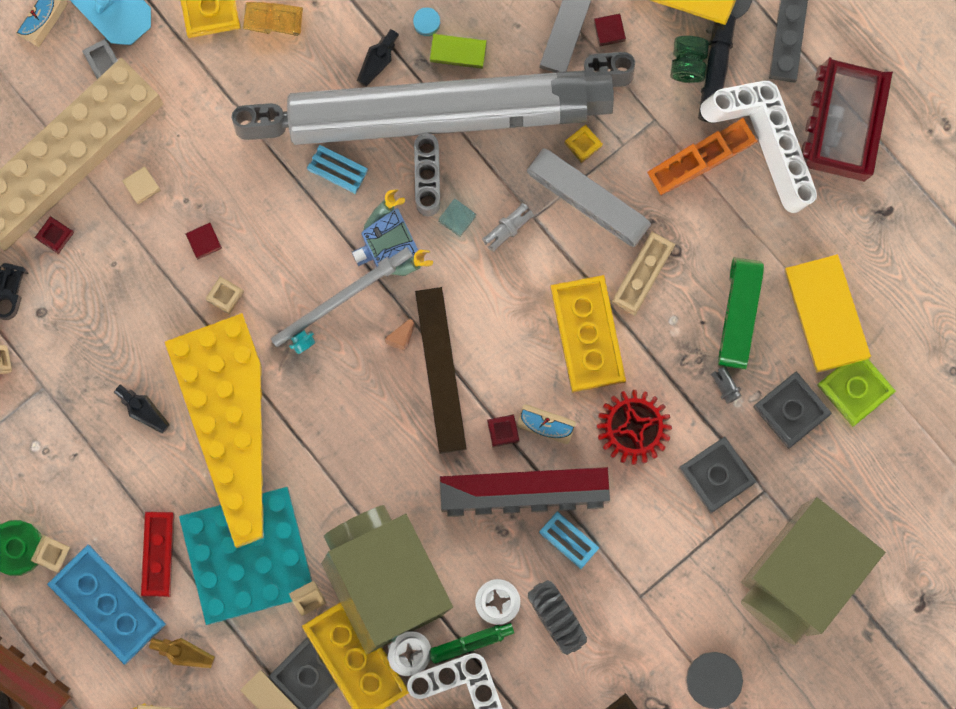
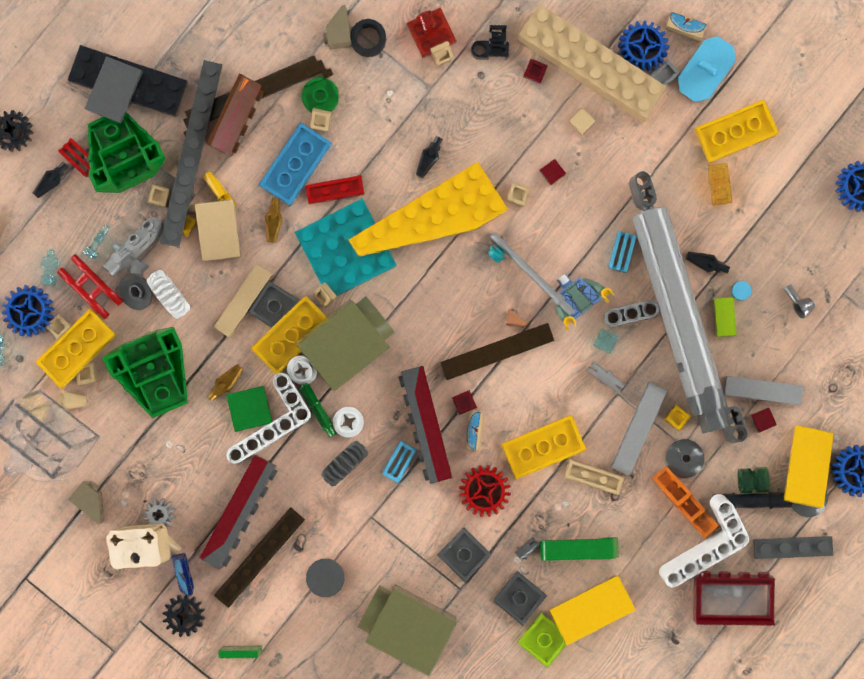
camera: 80 degrees right, 5 degrees up
(58, 58) = (645, 30): none -> blue gear
(636, 157) = (675, 455): none -> dark grey dish

